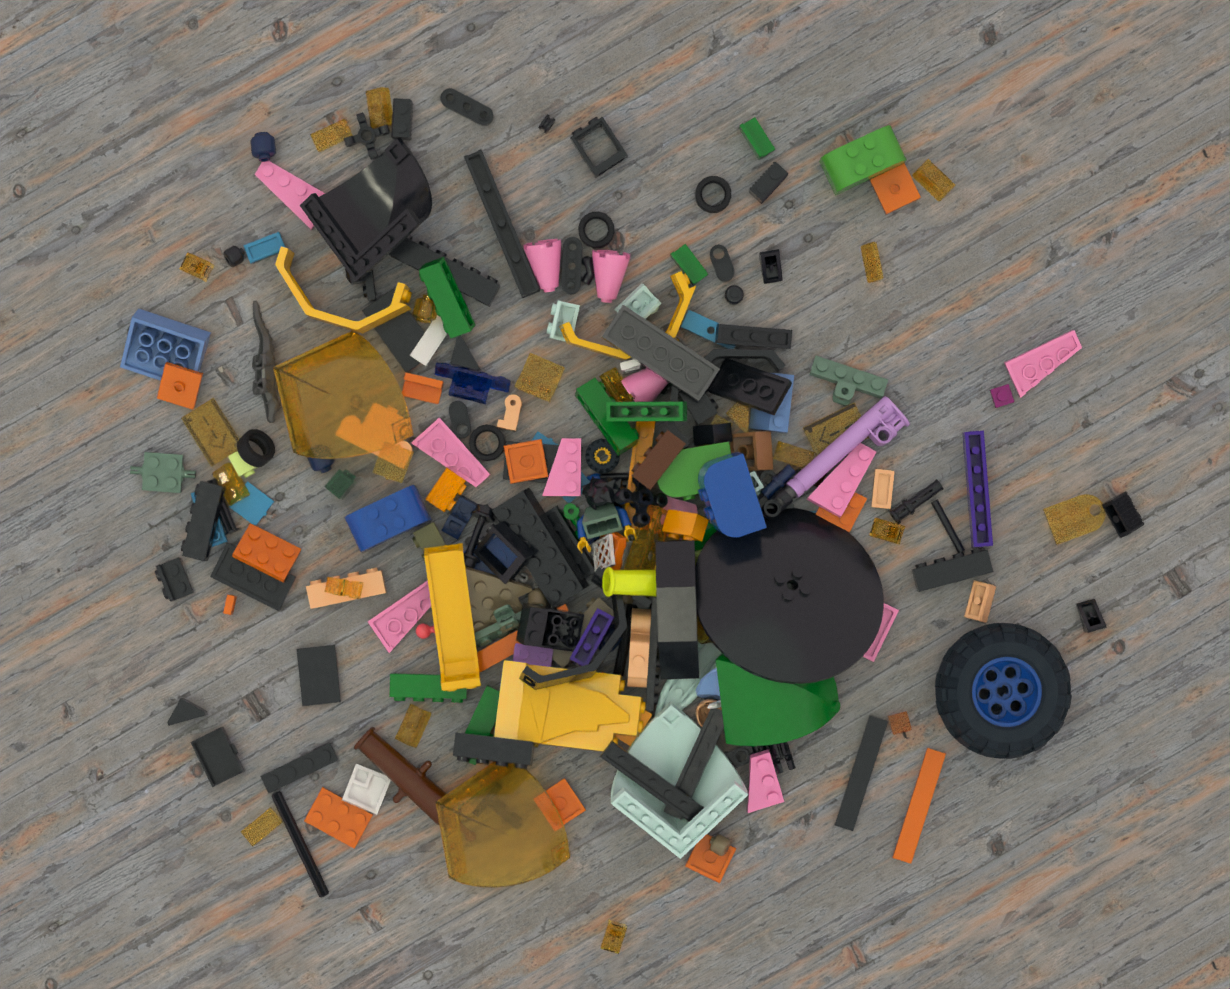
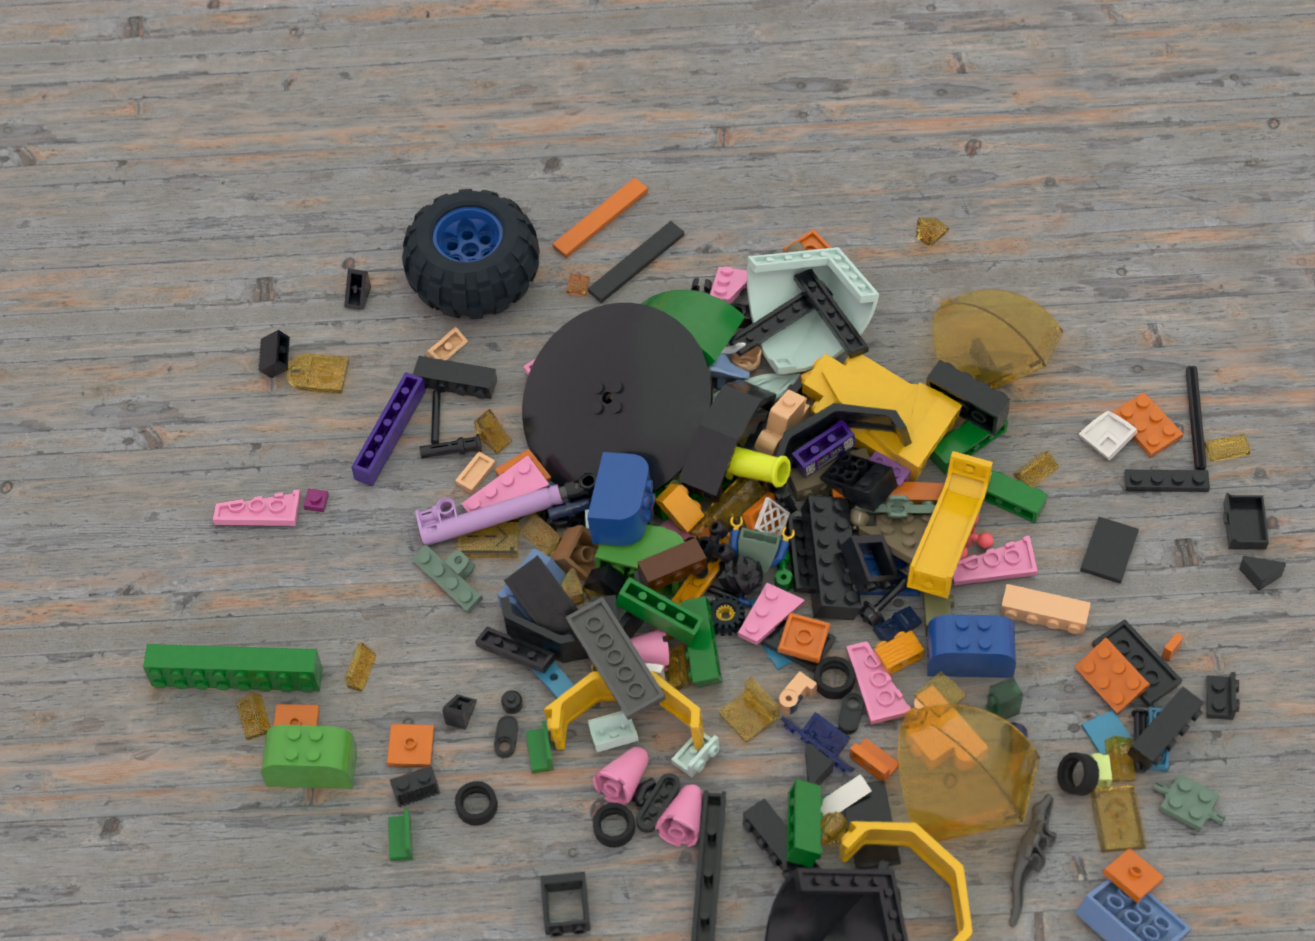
camera: 155 degrees left, 30 degrees down
(344, 587) = (1052, 604): clear yellow leg -> none
(408, 778) = (1063, 424): reddish brown piece -> none
(565, 801) = (921, 348): orange plate -> none
(793, 217) = (410, 745): none -> orange plate
(971, 205) = (233, 668): none -> green brick

